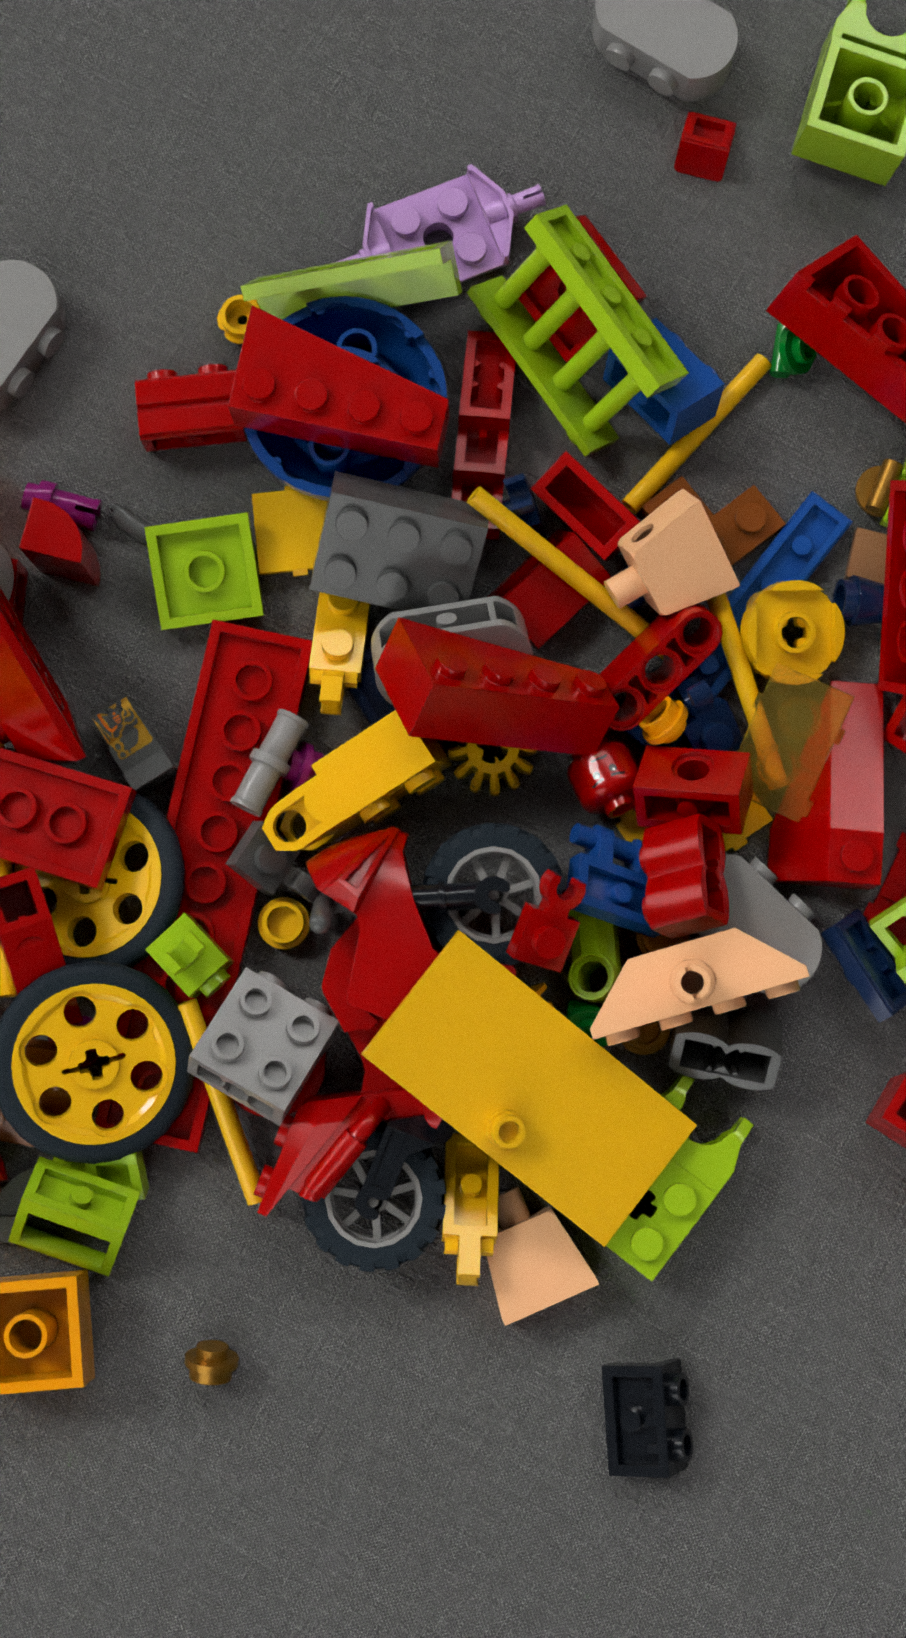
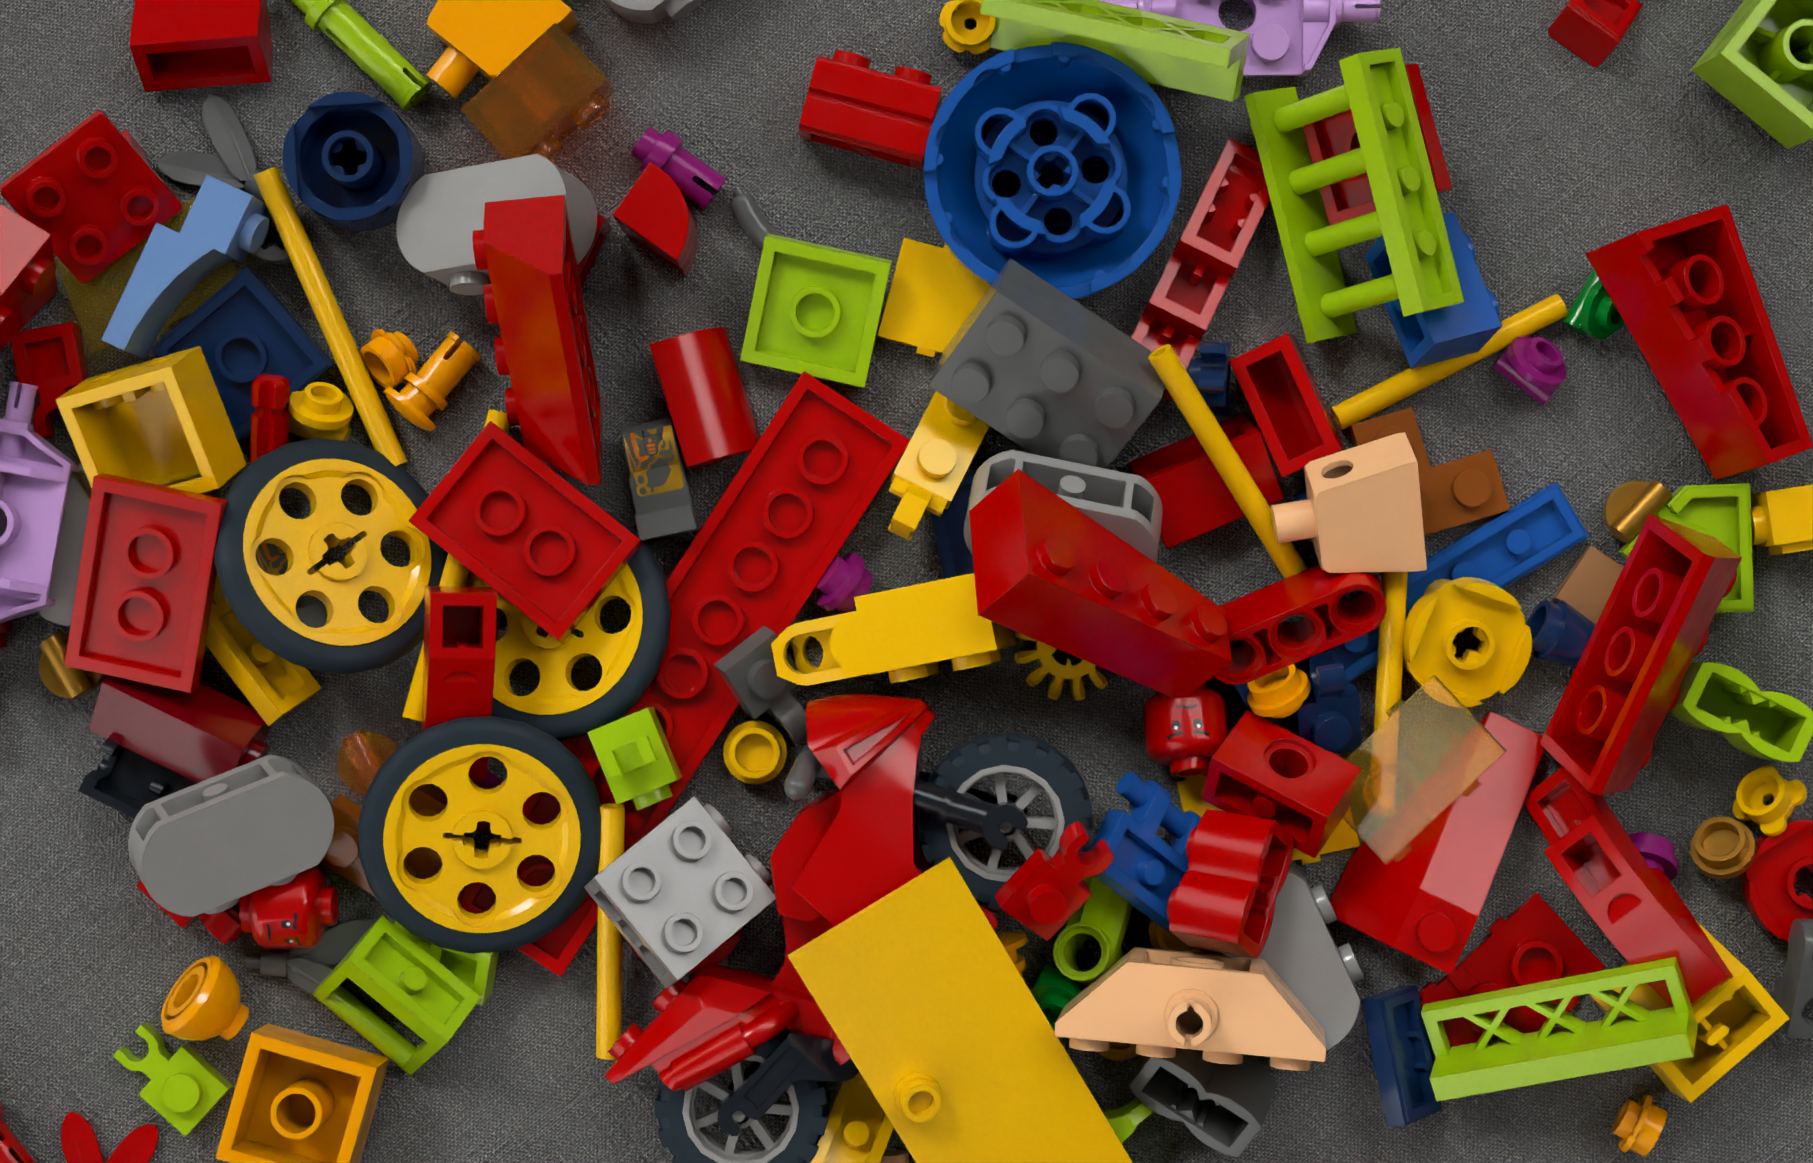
camera: 20 degrees right, 5 degrees up
(145, 667) = (705, 396): none -> red brick
(269, 762) = (807, 566): light grey pin -> none
(332, 397) = (1033, 166): red wedge -> none
(760, 413) = (1532, 366): none -> magenta plate

